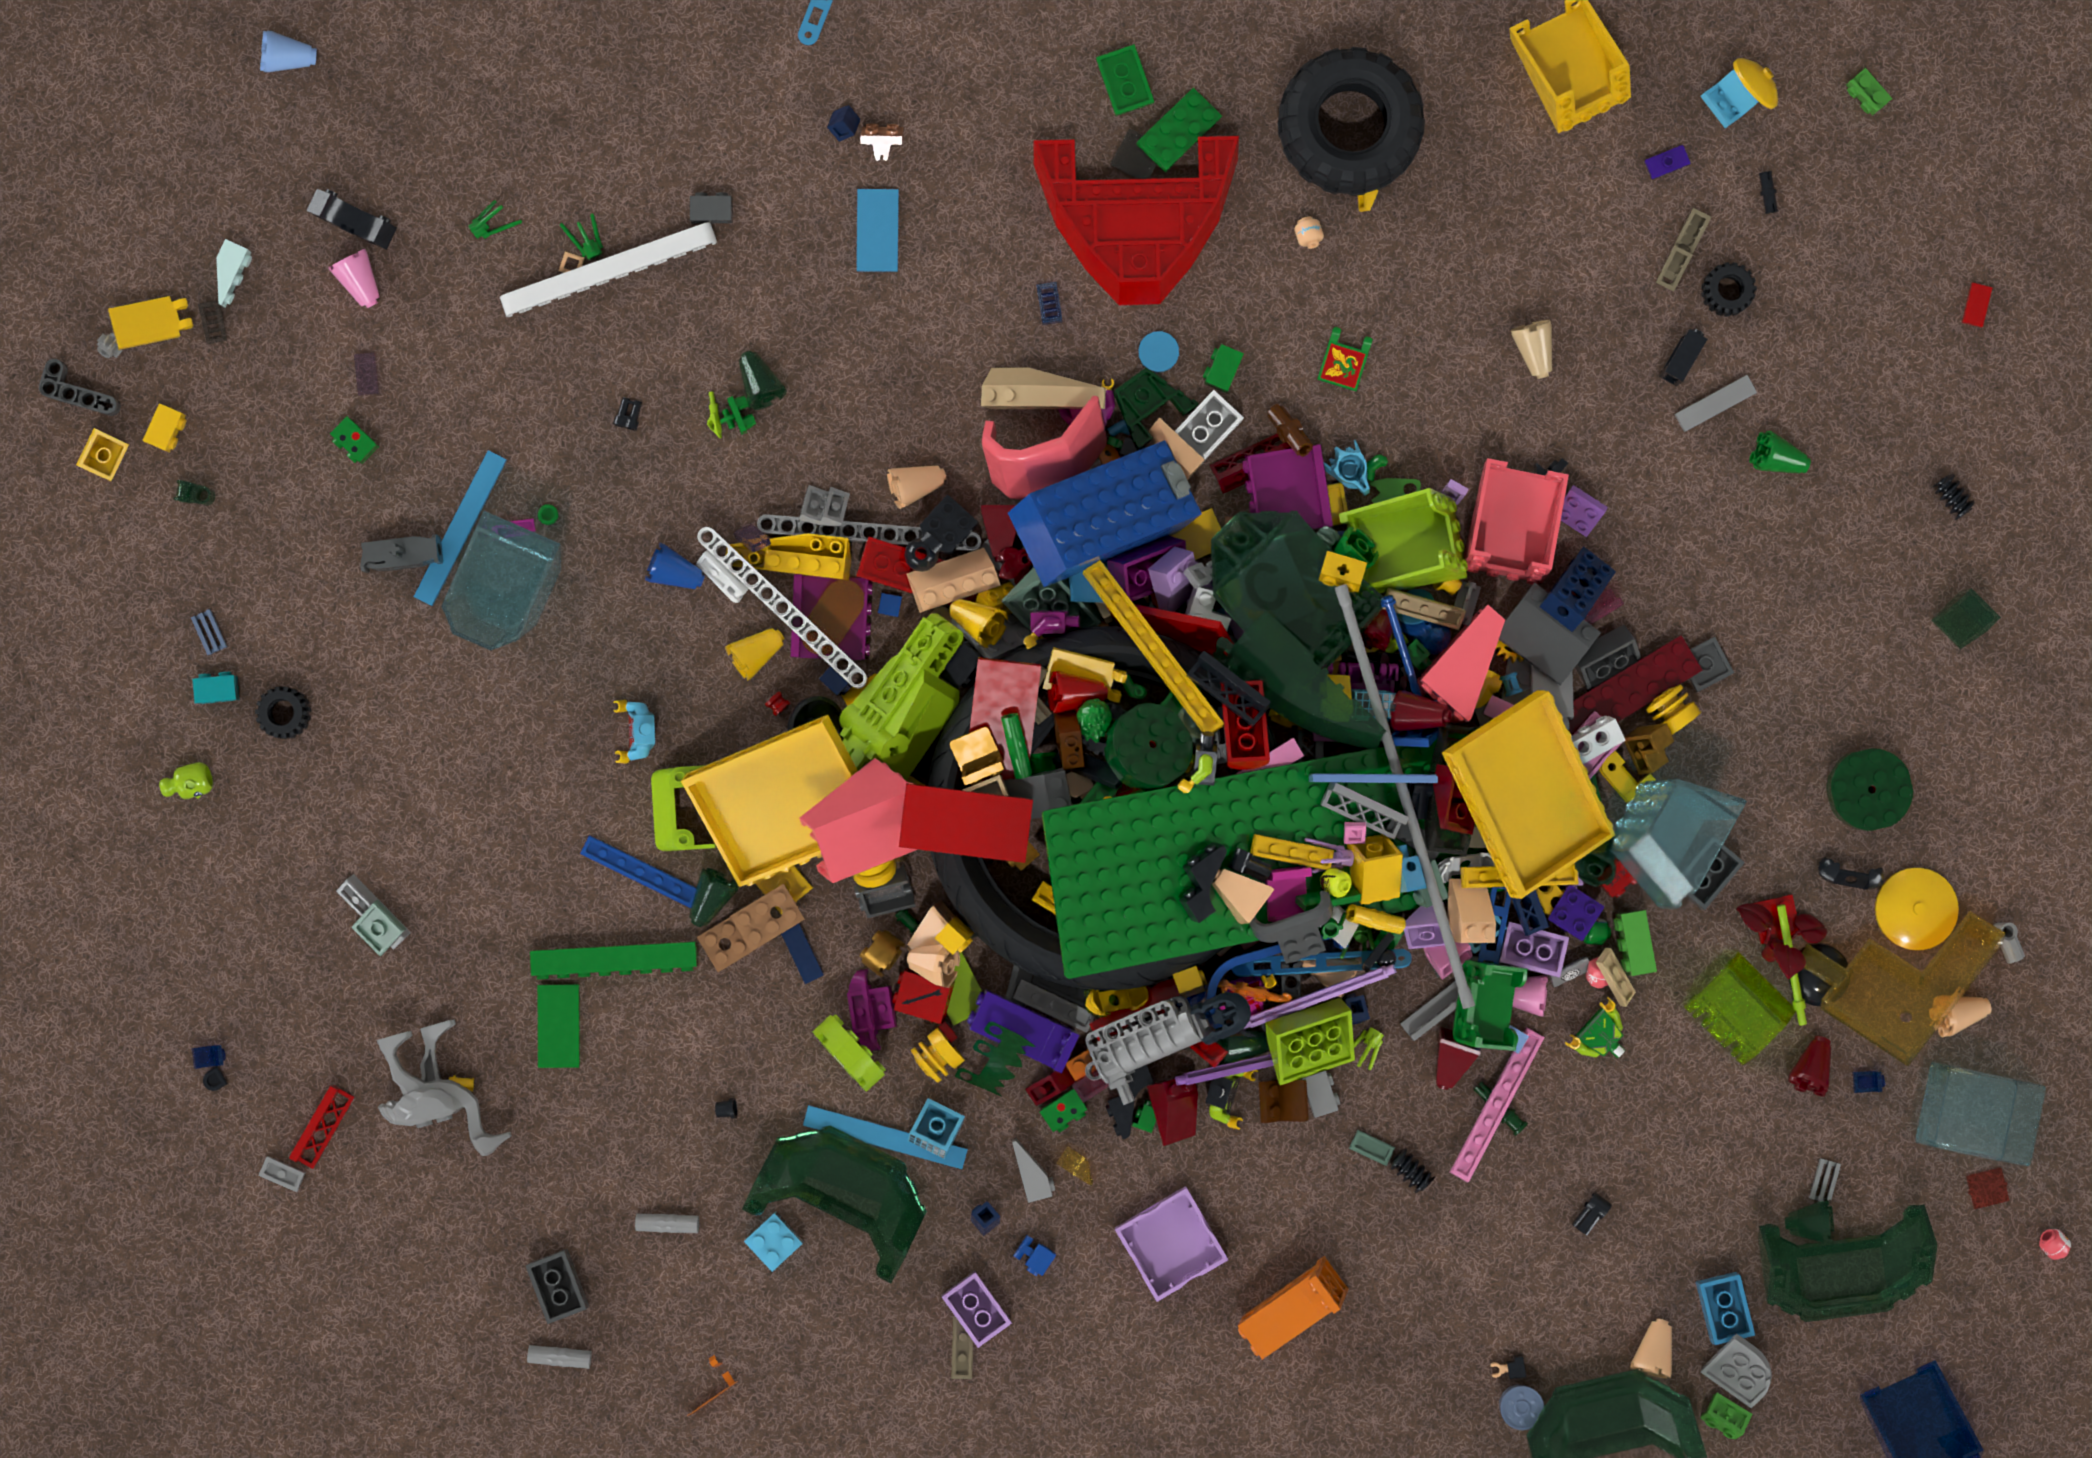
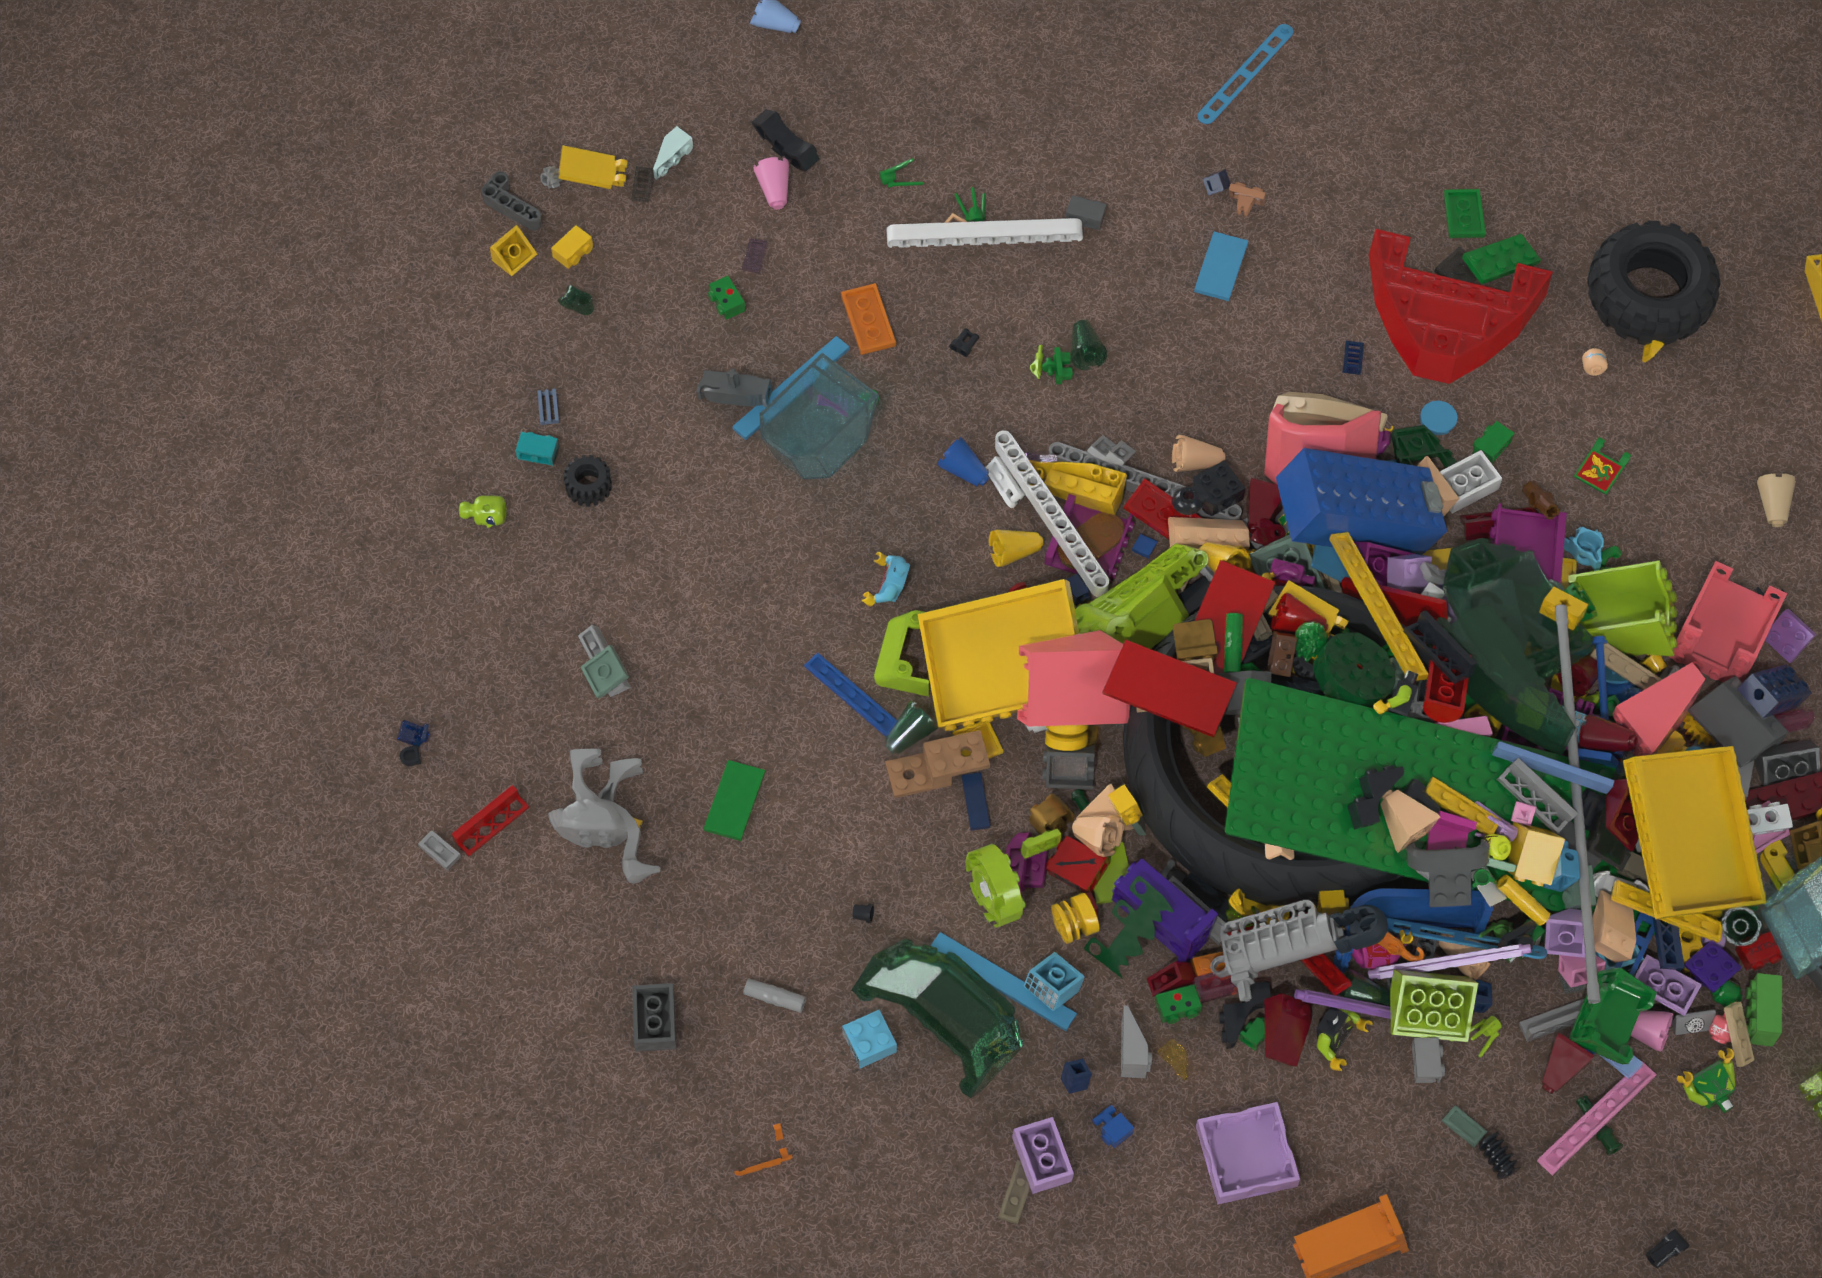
camera: 20 degrees right, 25 degrees down
(515, 418) = (868, 319): none -> orange plate
(559, 1356) = (632, 1083): light grey axle -> none
(614, 958) = (804, 756): green brick -> none
(886, 981) = (1040, 843): none -> lime plate
(1283, 1101) = (1390, 1055): reddish brown bracket -> none
(1455, 491) = (1680, 585): lavender tile -> none

